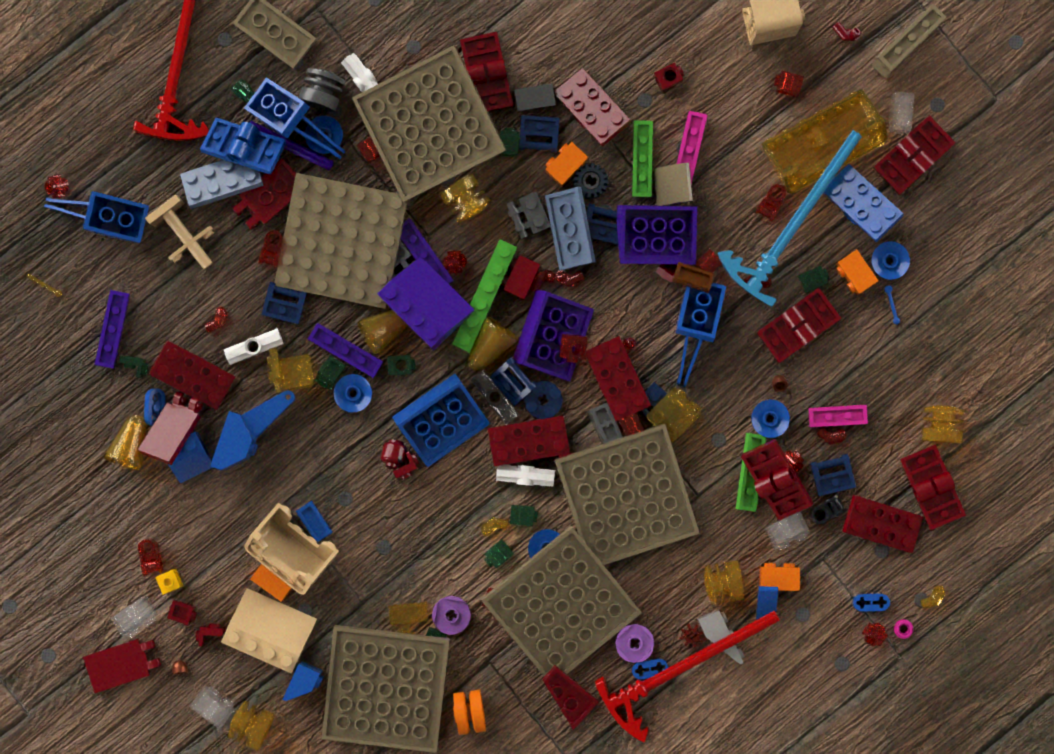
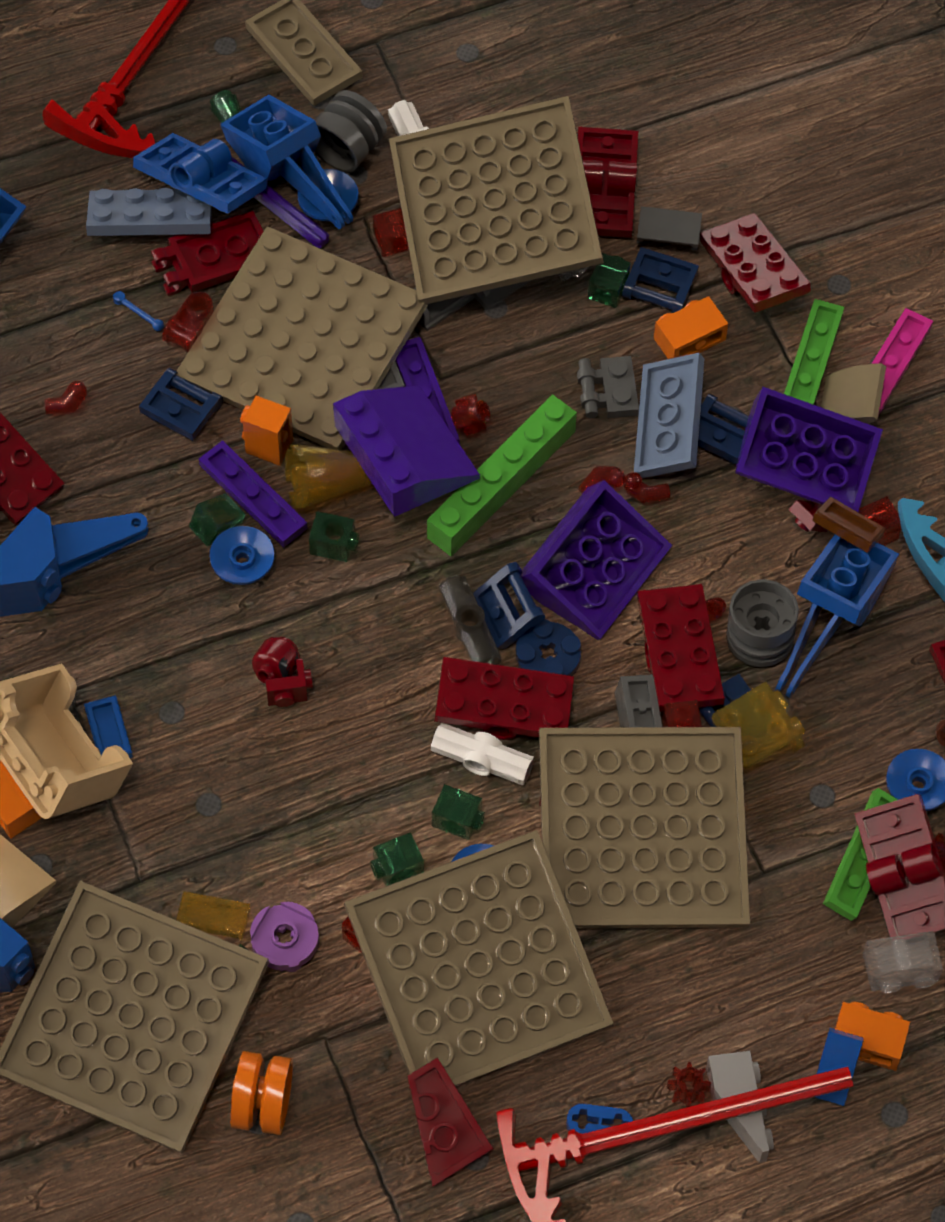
camera: 10 degrees right, 25 degrees down
(167, 213) = (48, 227): tan piece -> none
(223, 241) = (119, 298): none -> blue hinge
(265, 342) = (91, 448): white piece -> none
(290, 372) = (151, 497): clear yellow bracket -> none
(341, 311) = (267, 430): none -> orange brick
(441, 420) = (371, 635): blue slope -> none
(465, 198) = (516, 327): clear yellow wheel -> none
(490, 344) = (488, 541): clear yellow cone -> none
(493, 523) = (404, 815): clear yellow arm -> none
(521, 277) = (568, 465): dark red brick -> none
(567, 344) = (633, 573): clear red brick -> none
(596, 172) = (731, 354): black bush -> none
(645, 644) = (594, 1055): medium lavender plate -> none
(655, 340) = (762, 623): none -> dark grey wheel
(665, 84) = (880, 267): dark red brick -> none
(724, 582) = (771, 1008): clear yellow wheel -> none

